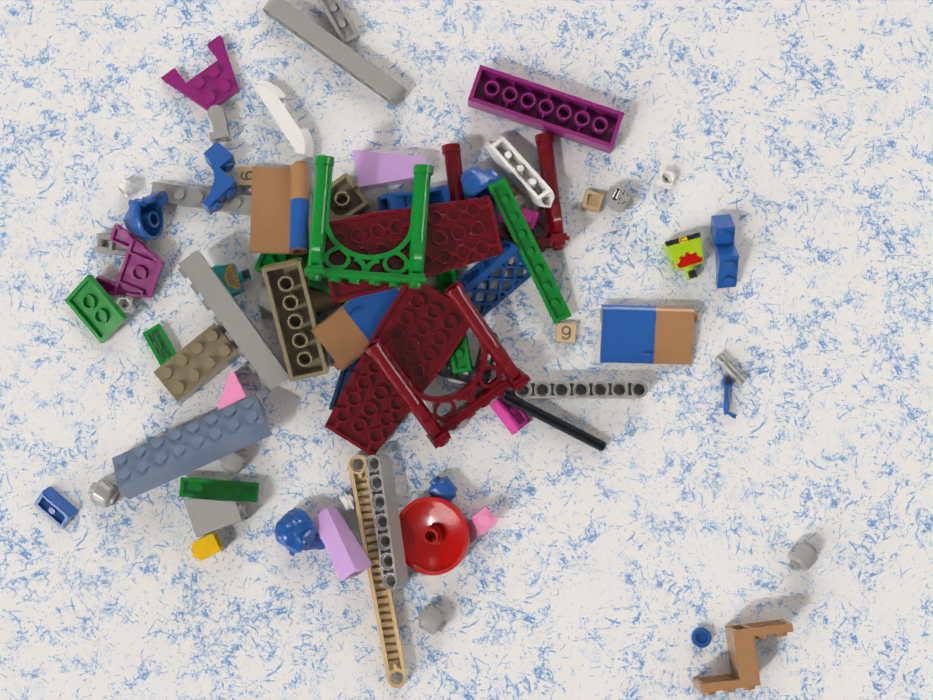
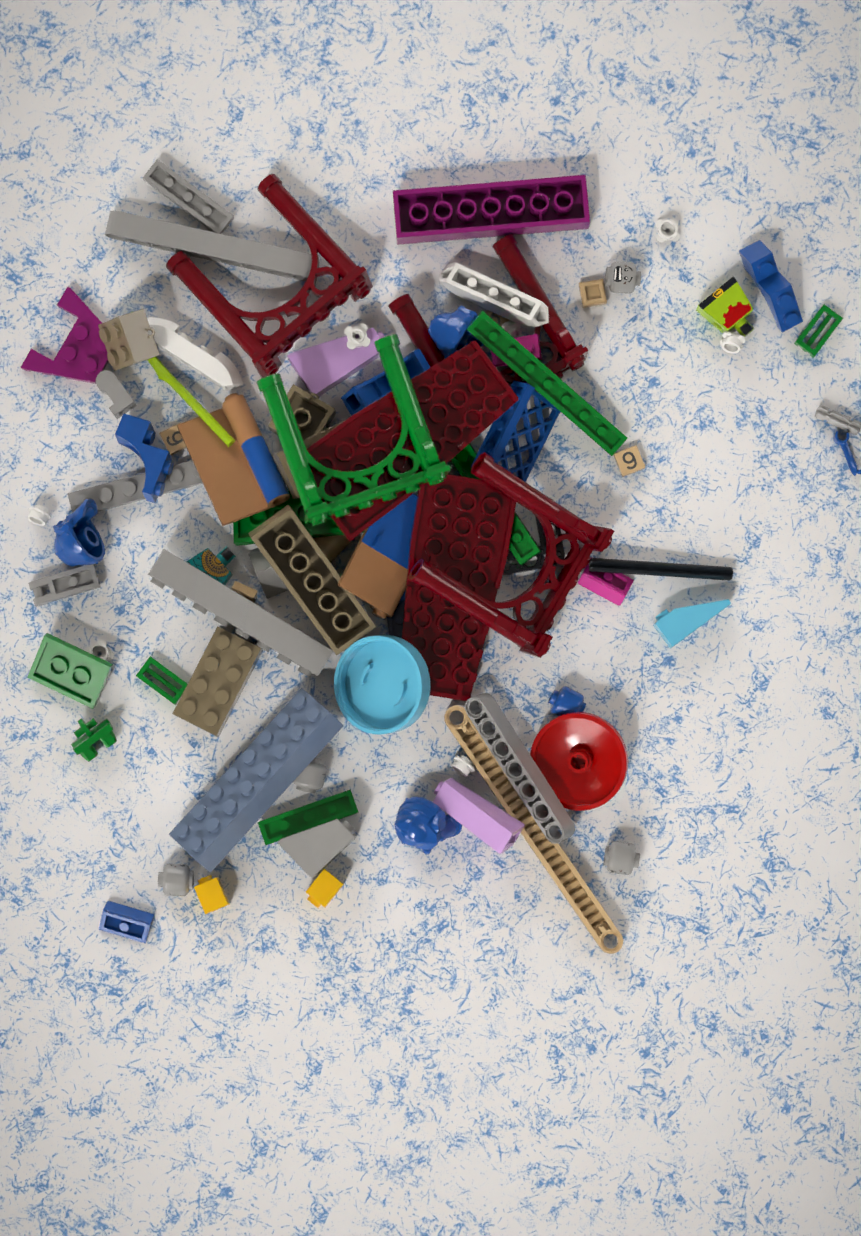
camera: 20 degrees left, 0 degrees up
(100, 363) = (84, 744): none -> green hips
(124, 514) = (211, 894): none -> yellow brick
(139, 269) = (100, 603): magenta wing -> none
(232, 392) = (274, 698): bright pink slope -> none
(242, 89) = (128, 339): none -> dark tan brick
(246, 307) = (245, 591): none -> tan tile
(264, 136) = (165, 375): none -> lime piece
(313, 417) = (382, 684): none -> medium azure piece
(338, 139) = (265, 358): none -> dark red arch
(407, 163) = (363, 340): none -> white plate
(480, 523) = (629, 721): bright pink slope -> none
(552, 467) = (683, 621): none -> medium azure slope
(590, 393) = (685, 512): light grey beam -> none
(647, 334) = (724, 421): door -> none
(678, 279) = (732, 342): none -> white plate
(730, 306) = (806, 346): none -> green tile

